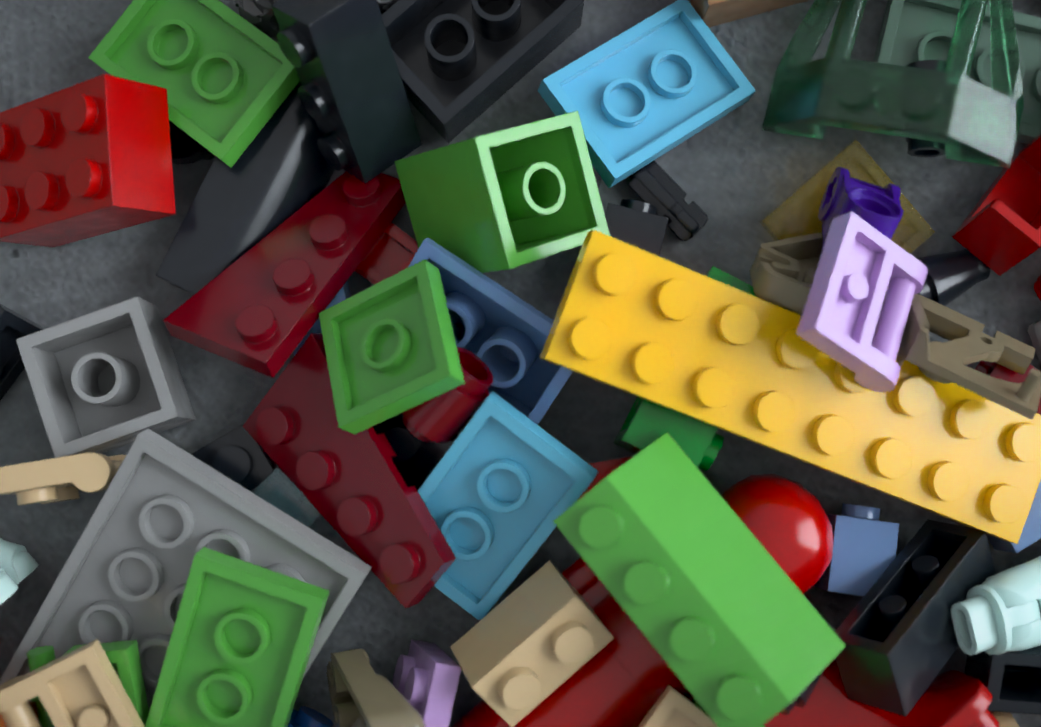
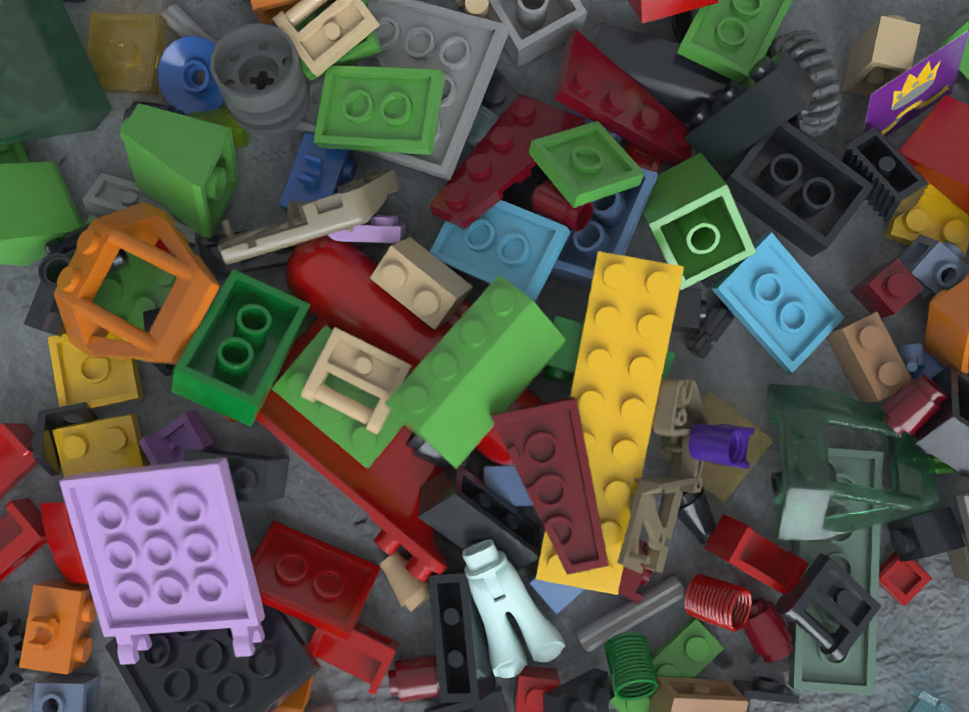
camera: 80 degrees right, 0 degrees up
(848, 299) = (675, 434): lavender plate -> none
(866, 490) = (555, 469): none -> dark red wing

